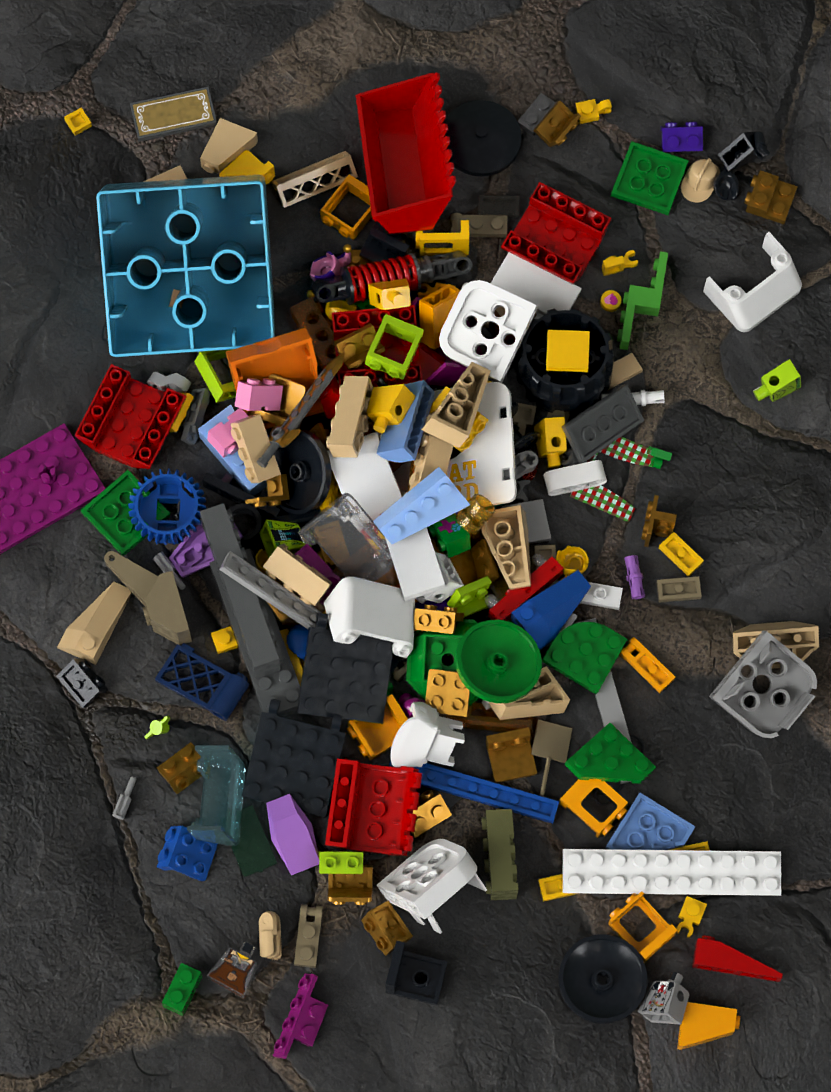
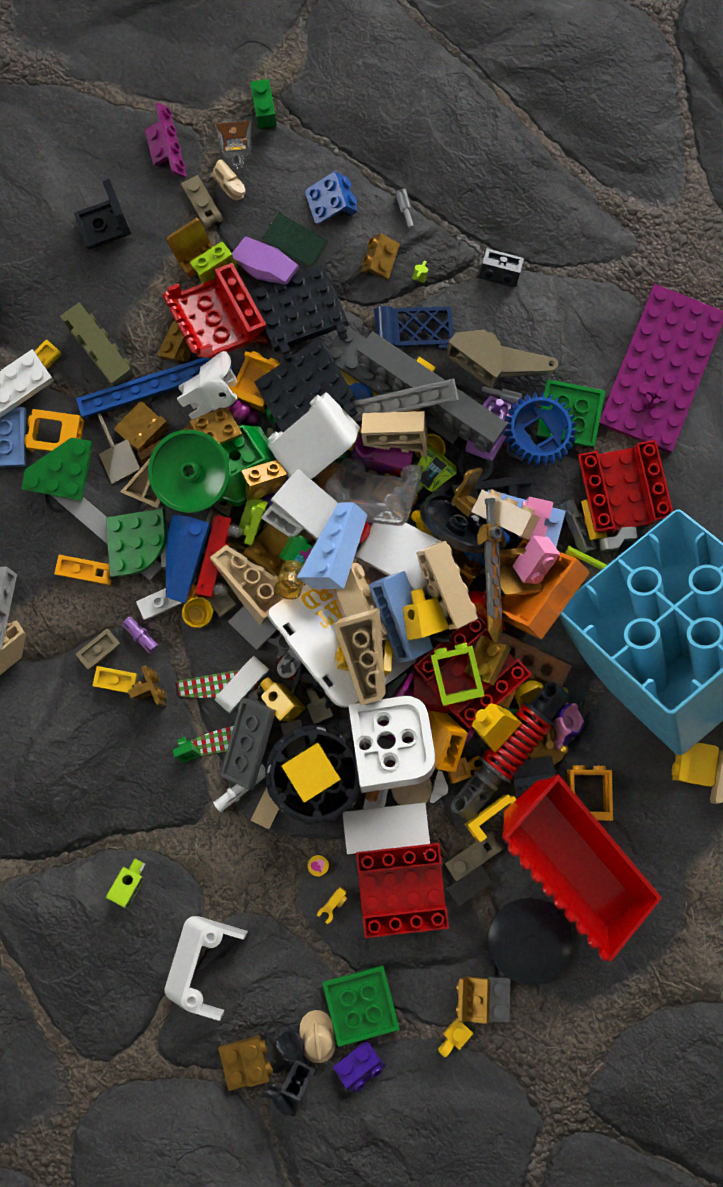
camera: 145 degrees right, 10 degrees up
(93, 628) = (525, 312): tan wedge -> none
(221, 795) = (329, 242): clear light blue windscreen -> none
(310, 172) = (644, 804): tan fence -> none
(386, 927) = (147, 243): pearl gold bracket -> none
(430, 879) = (115, 283): white piece -> none
(642, 300) = (290, 883): bright green bracket -> none

